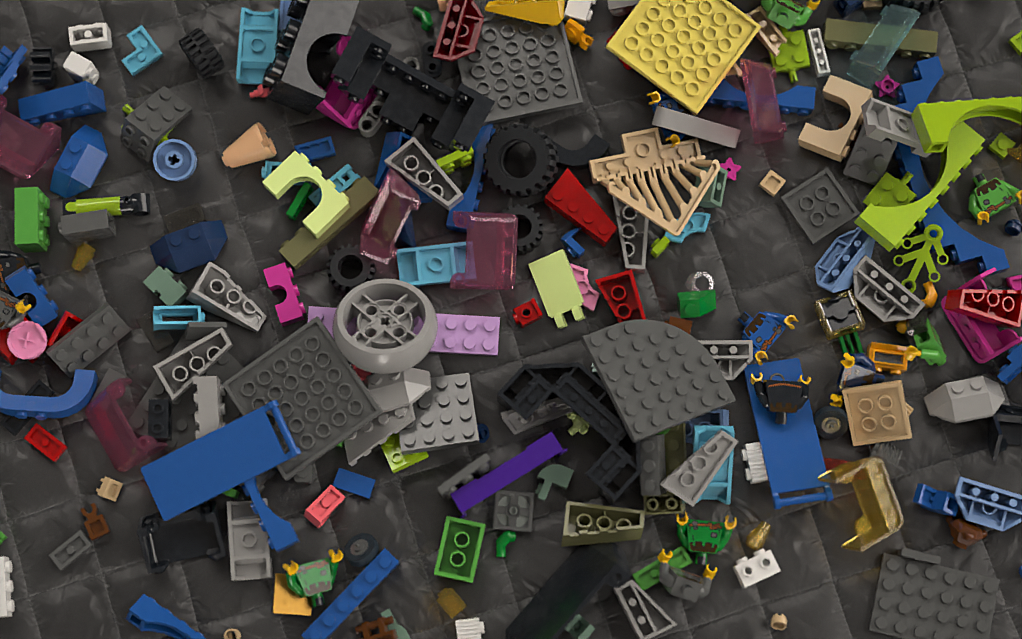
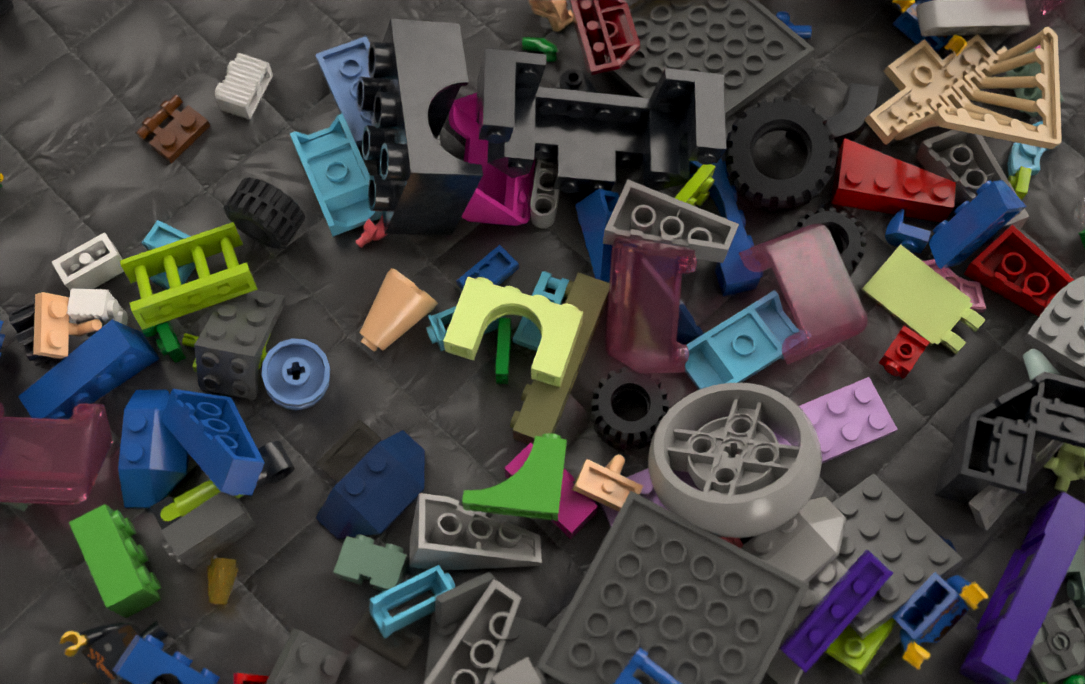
camera: 25 degrees left, 10 degrees down
(53, 69) = (53, 326): none -> light nougat plate
(112, 177) = (215, 439): none -> blue wedge
(115, 92) = (168, 342): none -> green plate
(141, 87) = (194, 295): none -> lime fence
(272, 288) = (531, 490): none -> bright green arch
(312, 306) = (606, 483): none -> light nougat plate
(393, 432) = (836, 610): none -> dark purple tile
(445, 460) = (934, 612): none -> blue torso
(466, 475) = (967, 638): dark grey plate -> none
(584, 77) = (803, 31): none -> blue arm
(608, 258) = (974, 223): none -> blue slope

